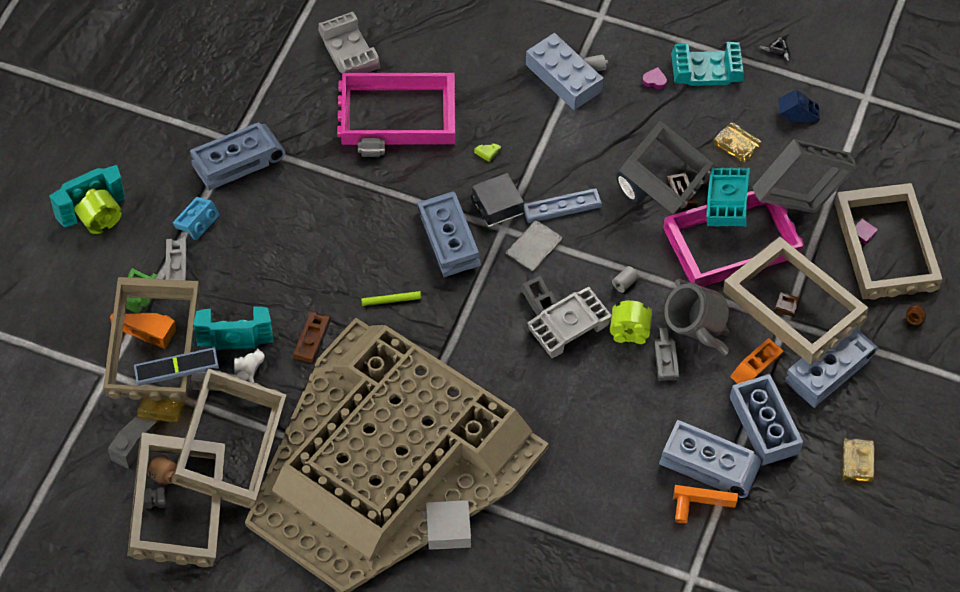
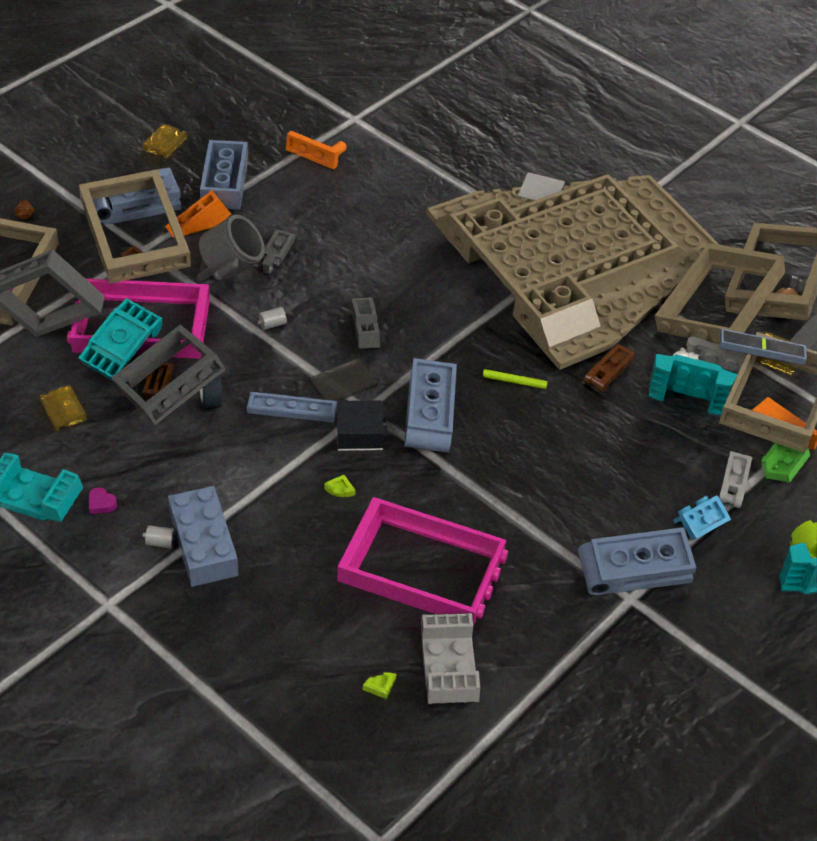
camera: 160 degrees left, 10 degrees down
(371, 147) = (475, 522): dark grey brick -> none
(389, 23) = (380, 684): none -> lime tile
(569, 320) = (351, 291): light grey plate -> none
(630, 322) = (295, 270): lime brick -> none
(710, 459) = (294, 166): sand blue hinge -> none

